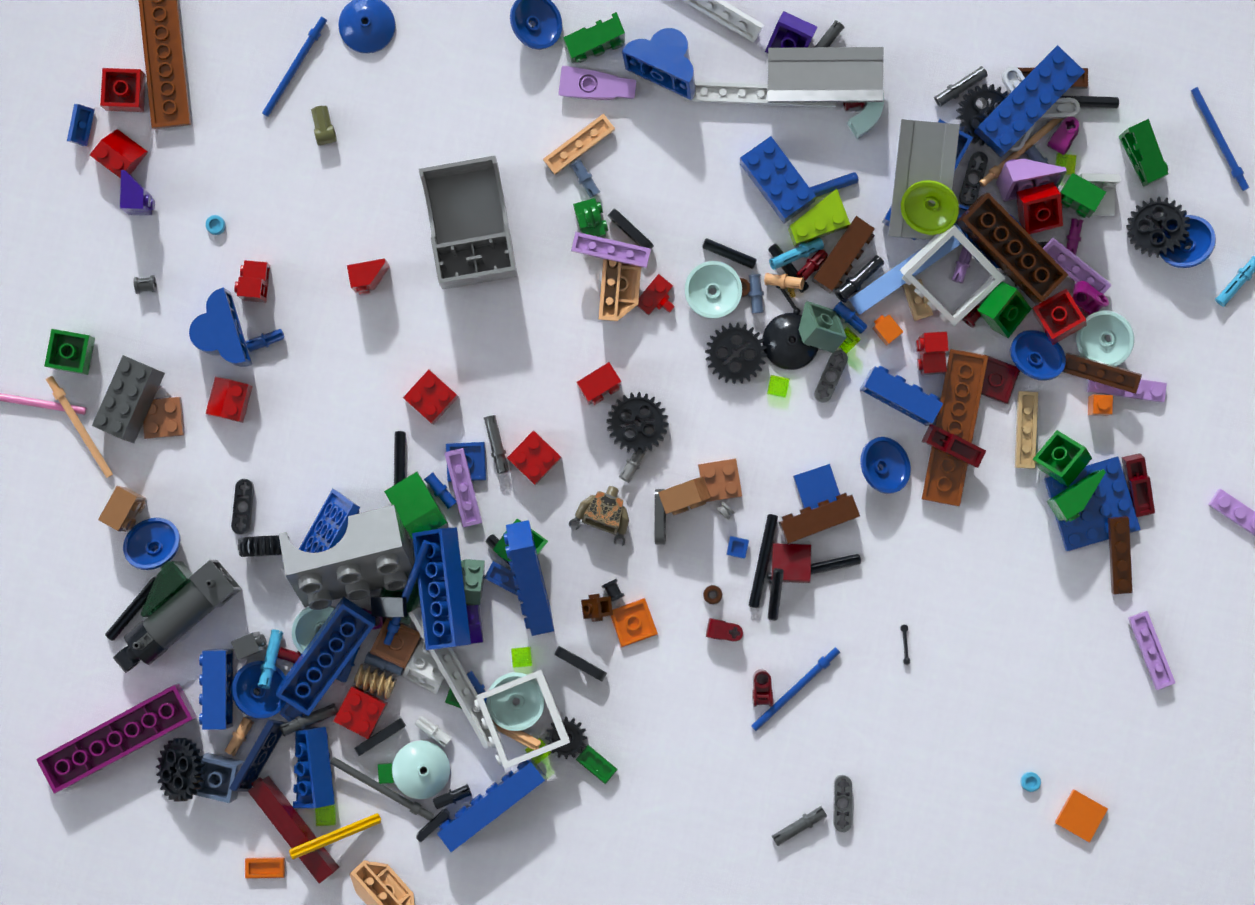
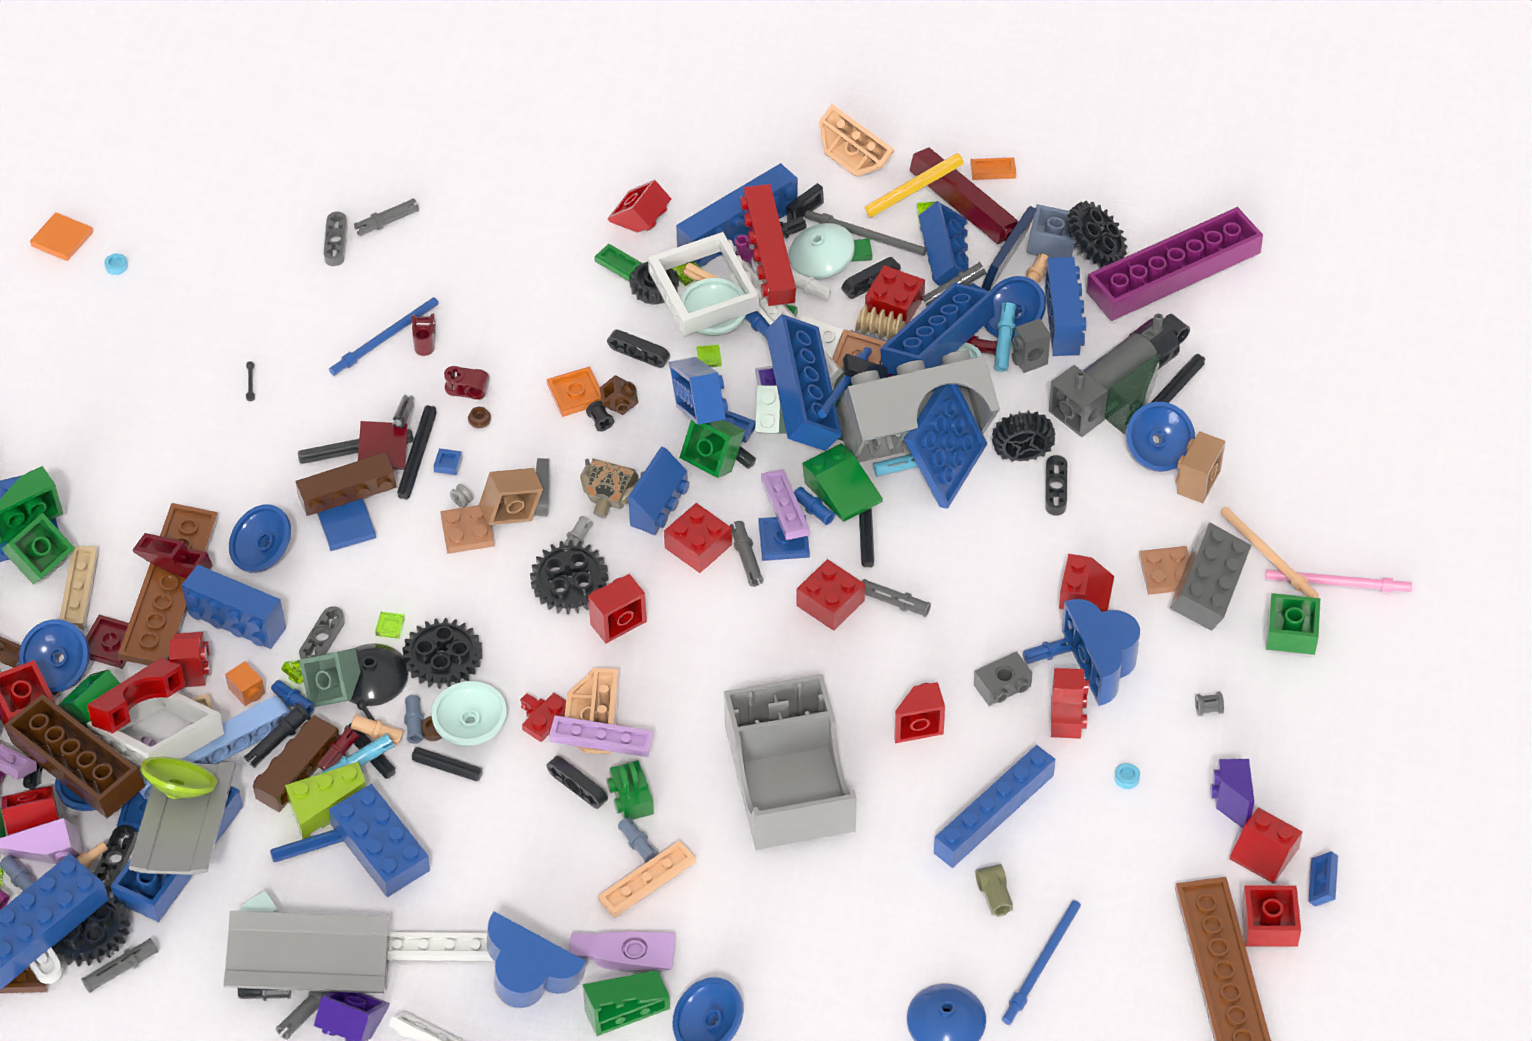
camera: 175 degrees left, 35 degrees down
(312, 312) = (1009, 668): none -> dark grey brick
(317, 195) = (994, 806): none -> blue brick
(376, 393) = (920, 607): none -> dark grey pin
(464, 749) = (769, 245): none -> red brick
(485, 754) = (743, 249): none -> magenta pin
(564, 500) = (657, 492): none -> blue slope
(578, 826) = (641, 207): none -> red slope
(955, 317) = (156, 680): none -> red arch

